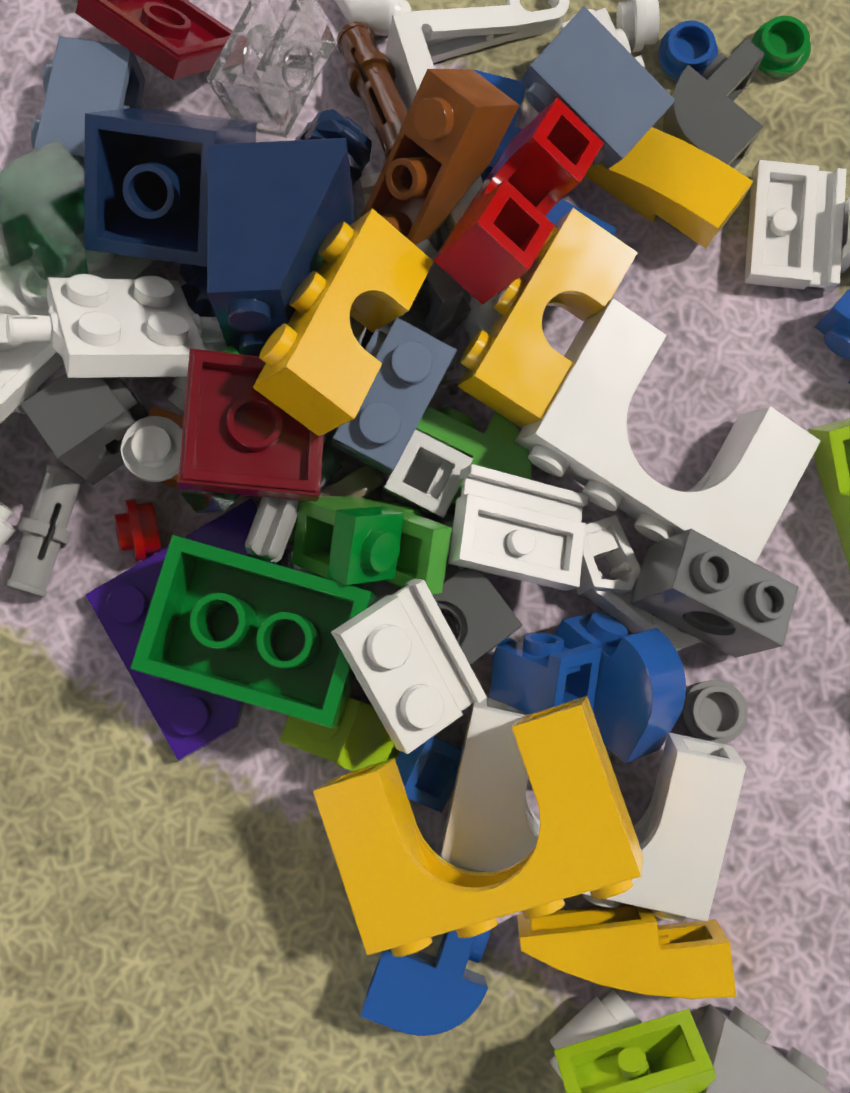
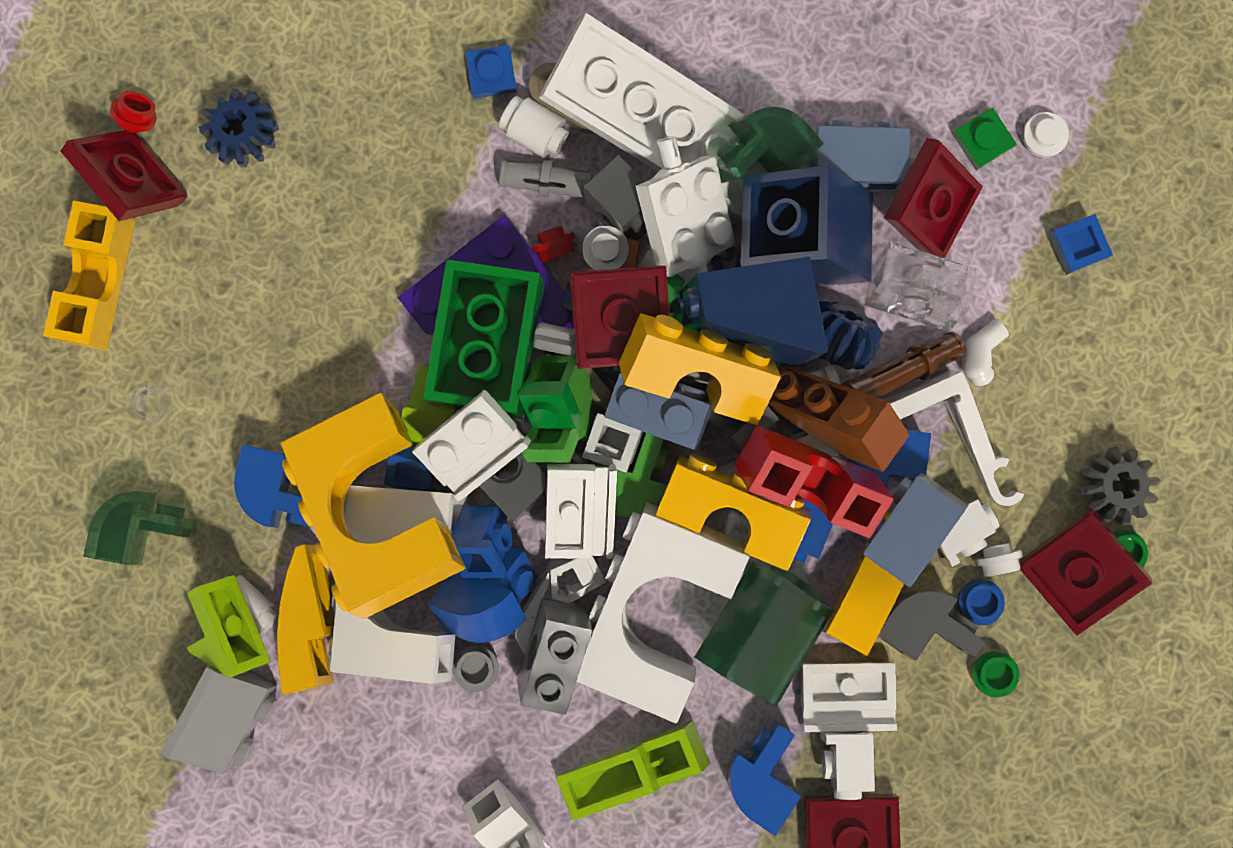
camera: 80 degrees right, 5 degrees up
(709, 308) = (765, 631): none -> clear green brick

